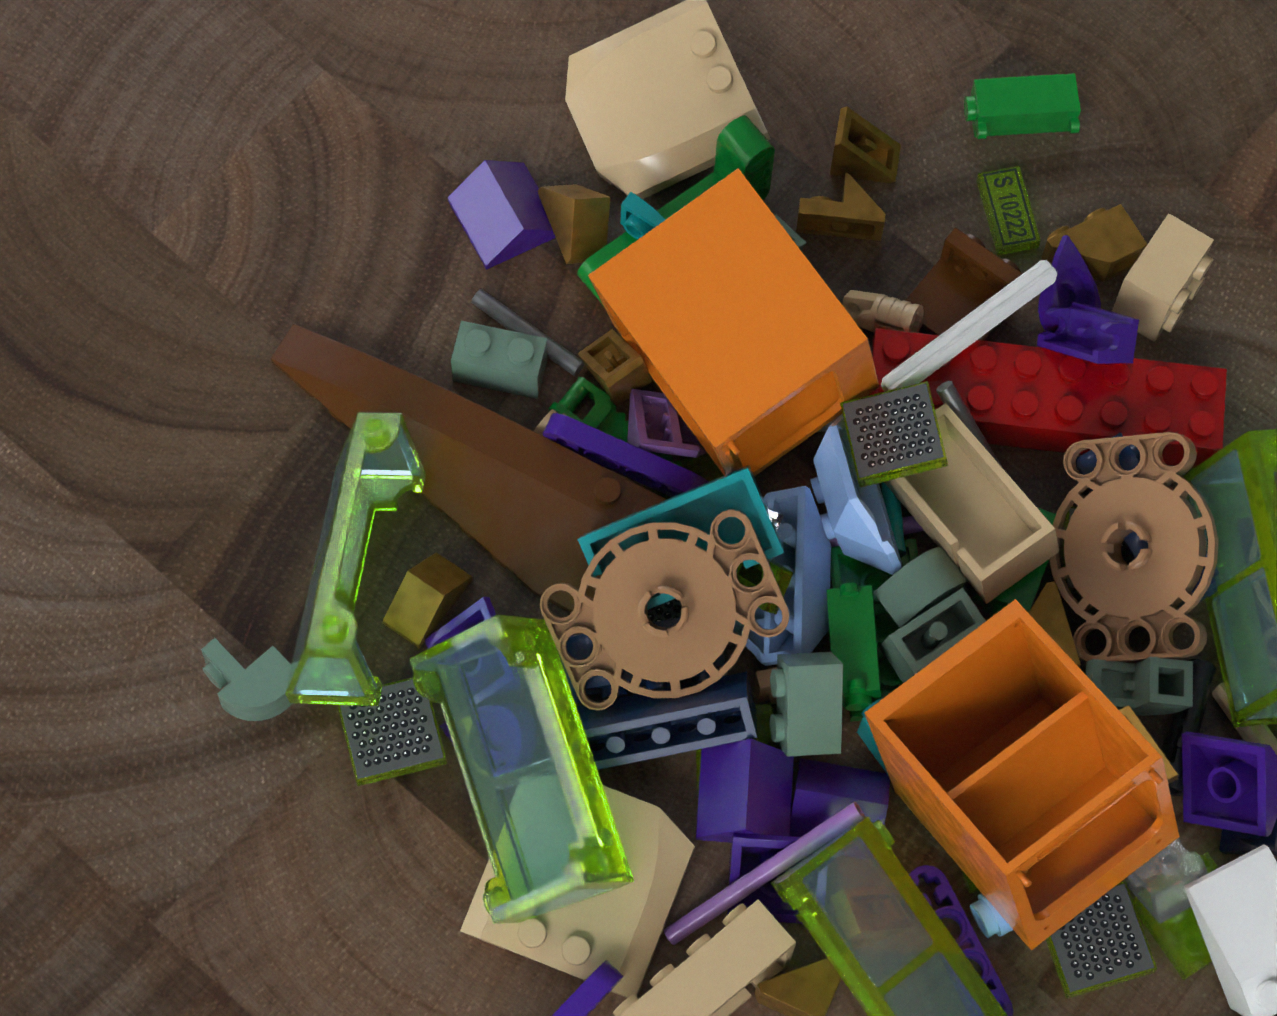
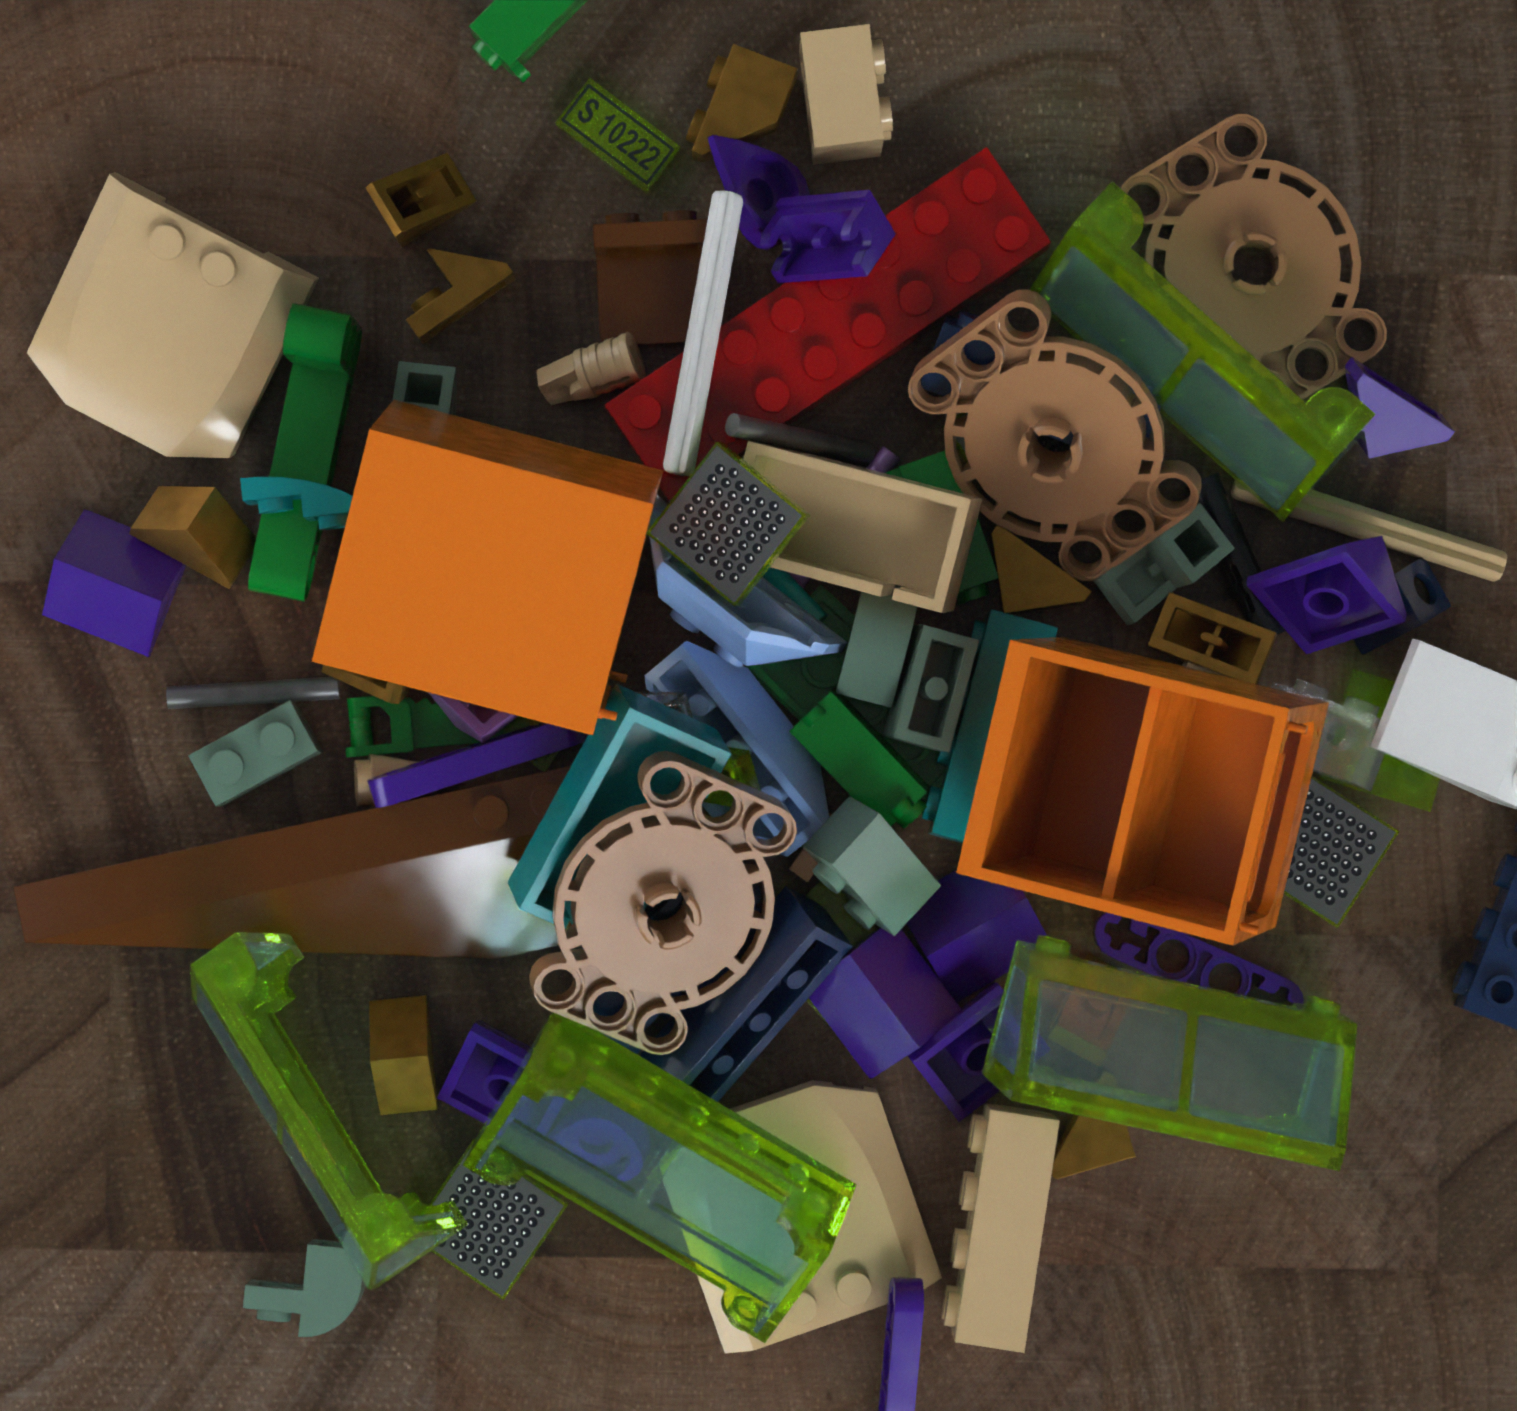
camera: 40 degrees left, 20 degrees up
(764, 873) = (967, 1065): medium lavender piece -> none

